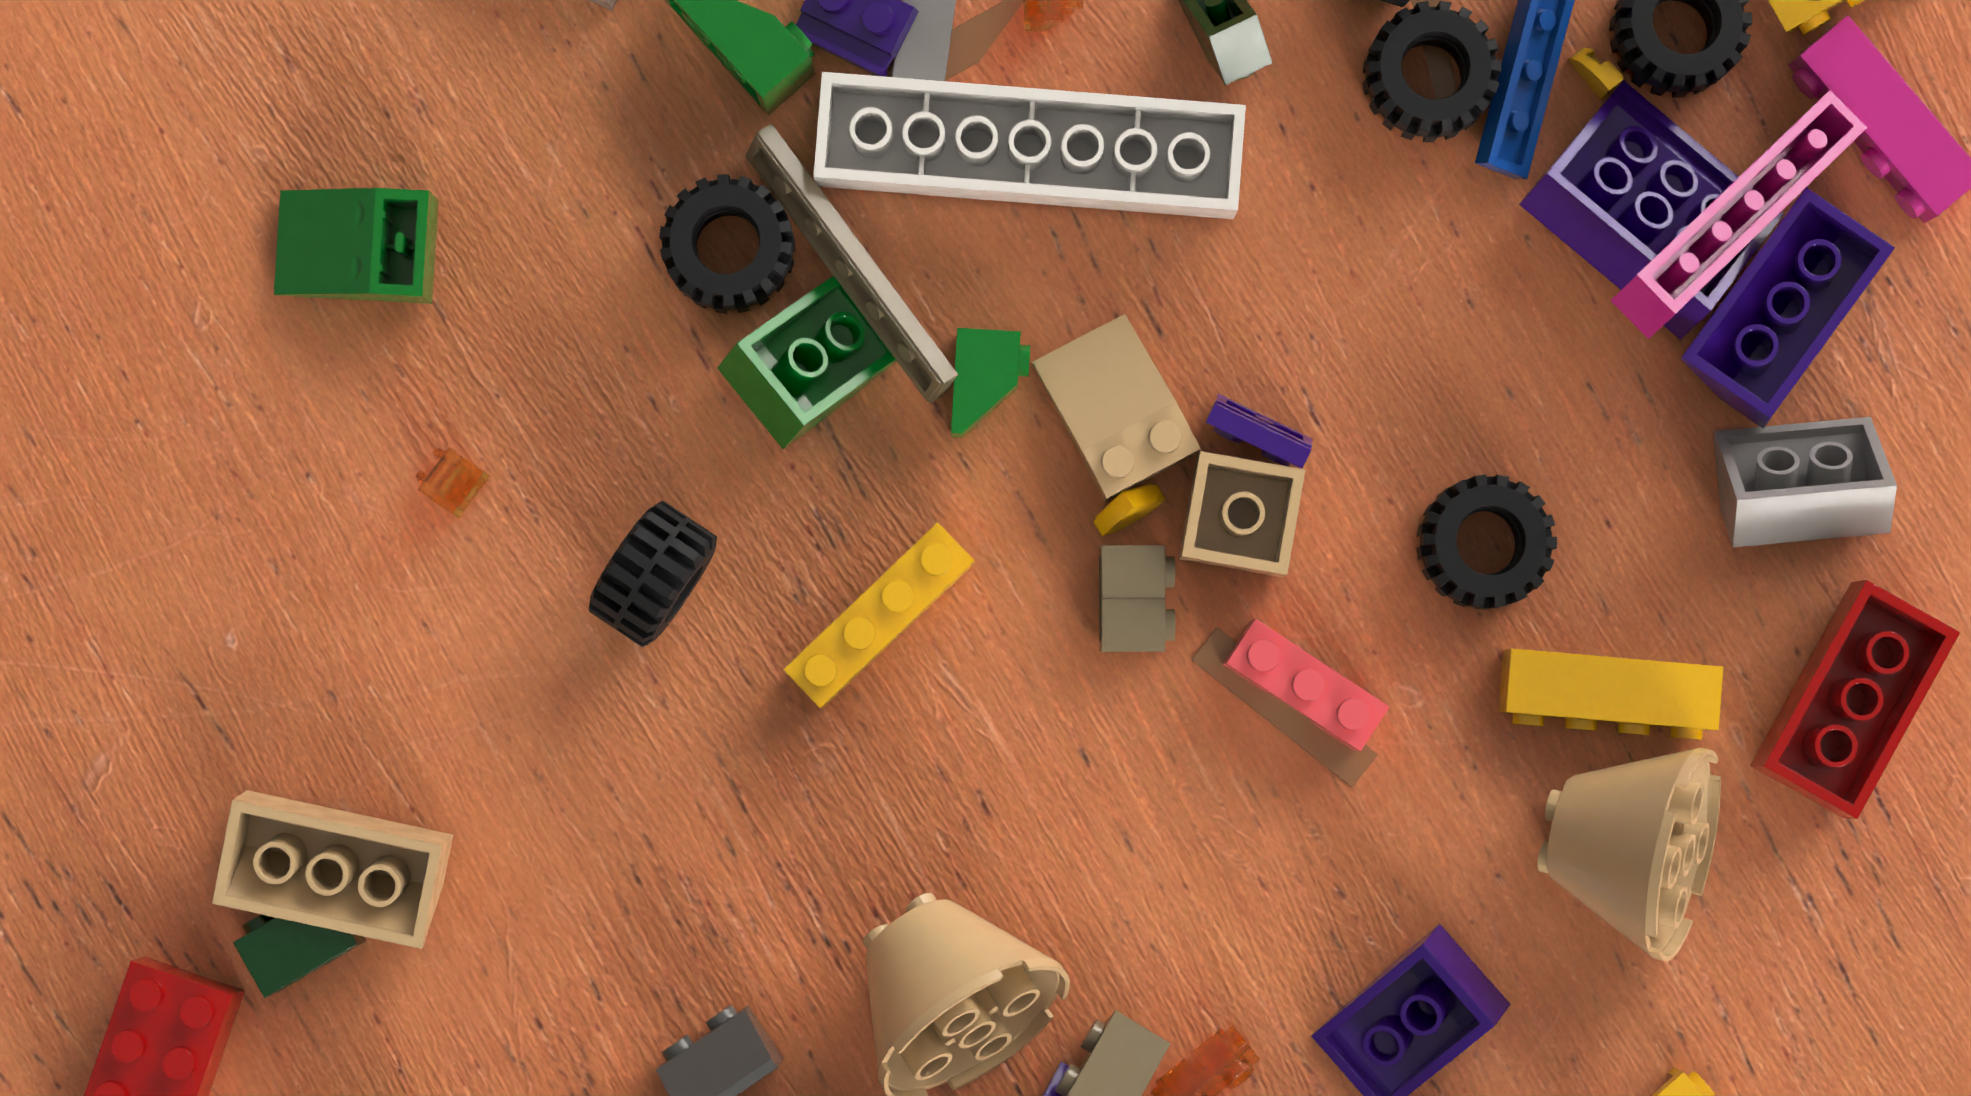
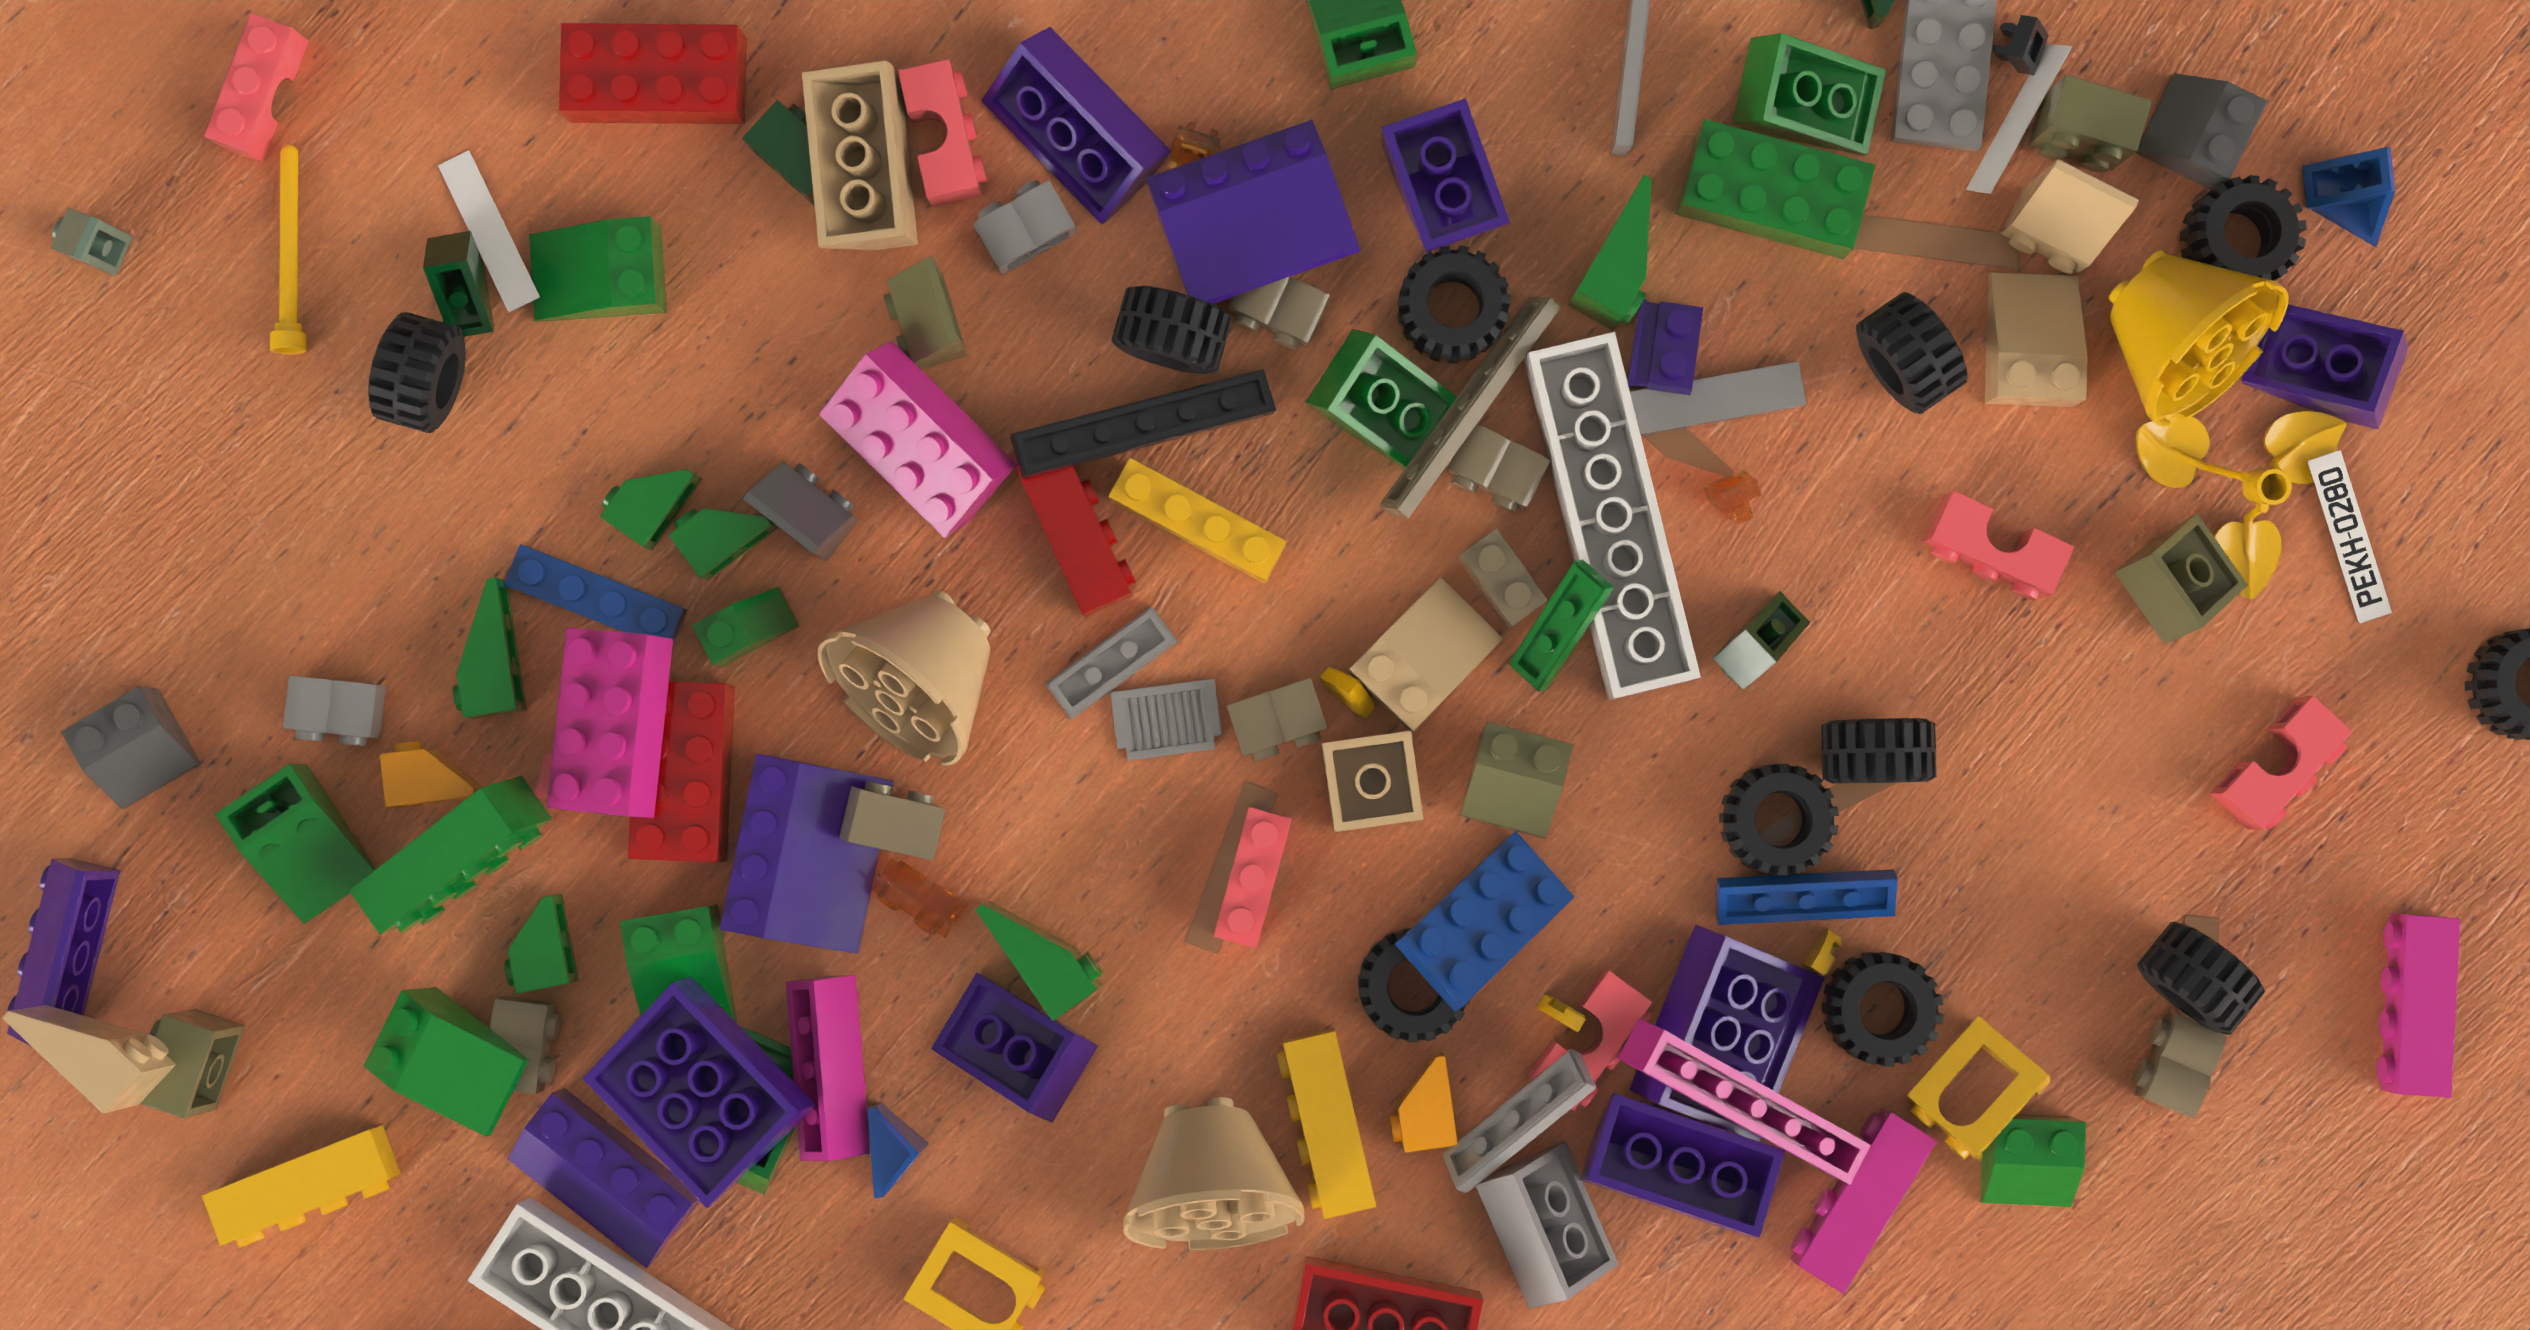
camera: 75 degrees right, 0 degrees up
(375, 608) = (1075, 124): none -> dark purple slope
(381, 766) = (935, 94): none -> coral arch
(473, 705) = (1024, 226): none -> light grey brick
(540, 852) = (925, 315): none -> olive slope
(550, 437) = (1253, 214): none -> dark purple slope
(578, 206) = (1444, 175): none -> dark purple slope
(661, 443) = (1283, 307): none -> dark tan brick
(680, 906) = (917, 438): none -> brick
(747, 643) = (1142, 423): none -> black tile
(835, 761) = (1079, 538): none -> red brick
(931, 254) = (1498, 467): none -> dark tan brick
(987, 374) = (1417, 543): green slope -> none
(1007, 767) = (1111, 662): none -> light grey tile
(1059, 291) = (1502, 578): none -> dark tan brick
(1092, 725) = (1166, 719): none -> light grey window
(1134, 242) = (1561, 625): none -> green tile
(1244, 424) = (1442, 785): dark purple plate -> none
(1291, 351) = (1516, 779): none -> olive slope
(1330, 950) = (1047, 964): none -> green slope
(1441, 439) = (1484, 921): none -> blue plate
(1569, 387) = (1561, 1012): none -> yellow tile
(1630, 575) = (1426, 1110): none -> light orange slope
(1643, 395) = (1616, 1012): none -> coral arch
(1678, 474) = (1519, 1121): none -> light grey tile

